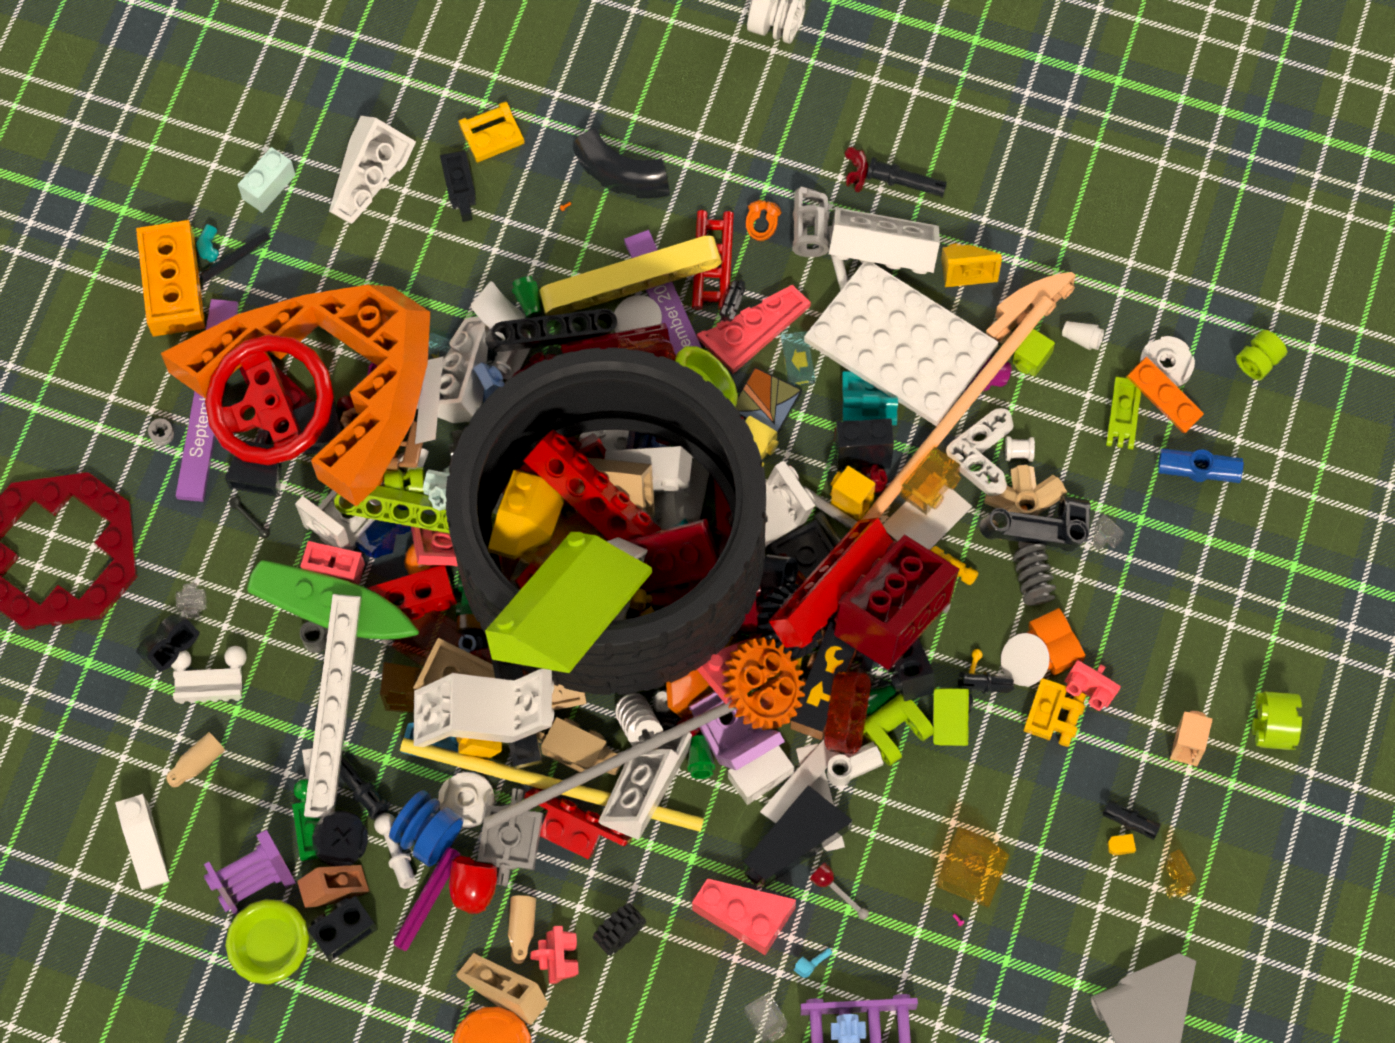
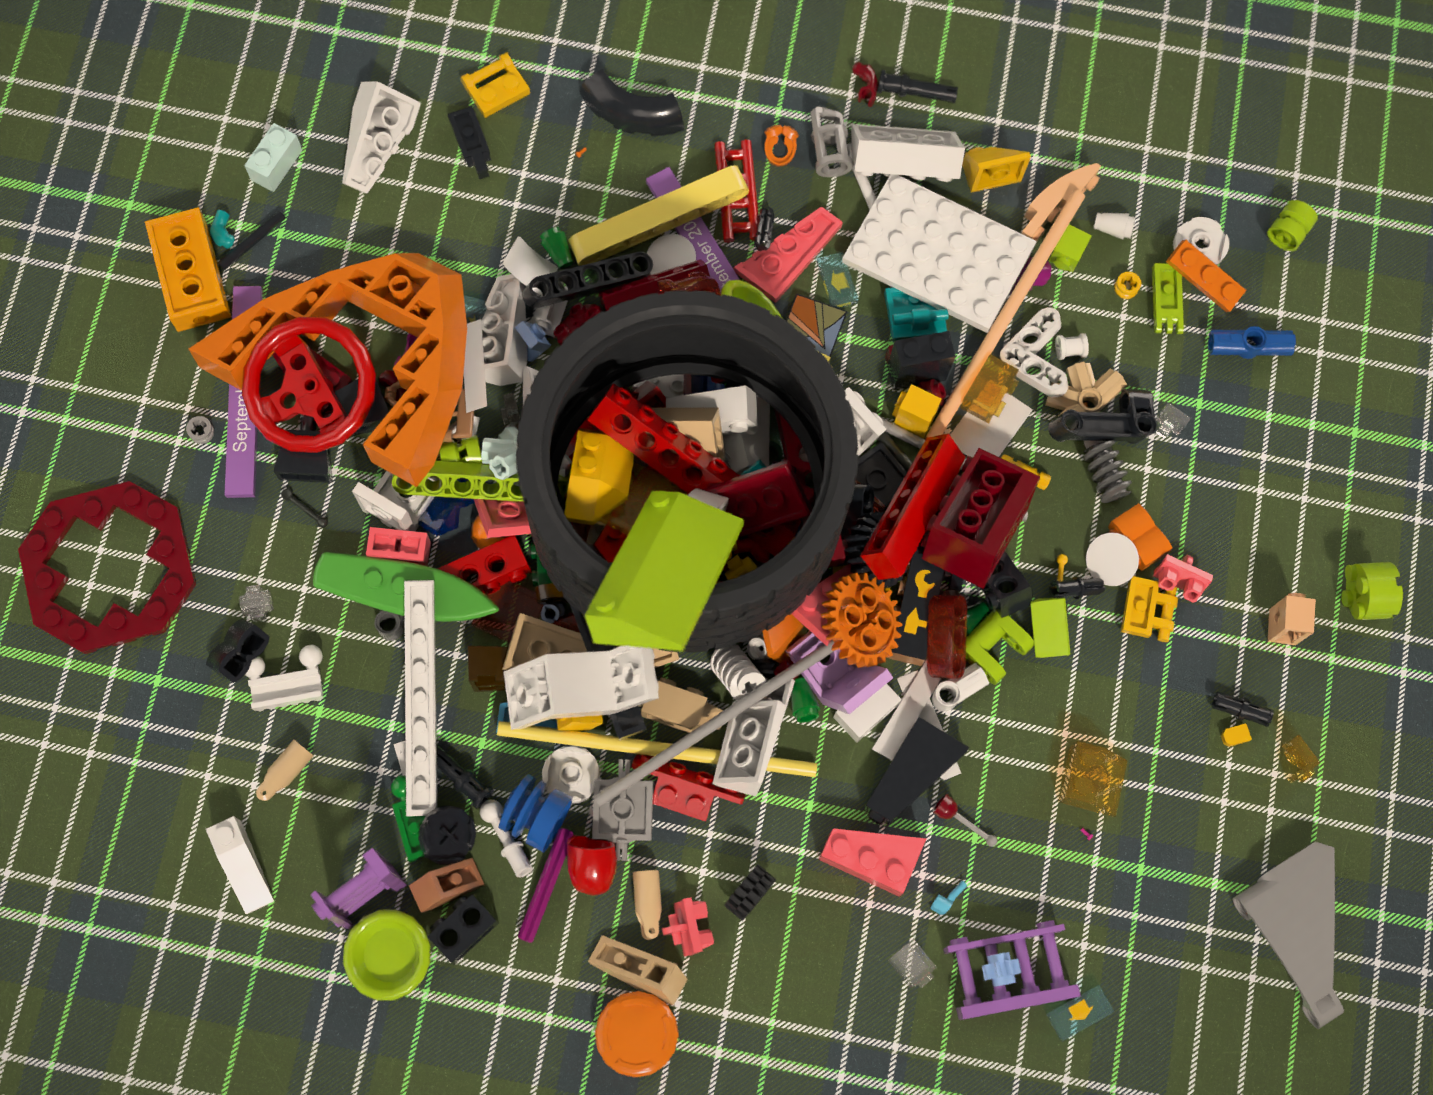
camera: 15 degrees left, 5 degrees up
(1094, 393) = (1120, 288): none -> yellow bush

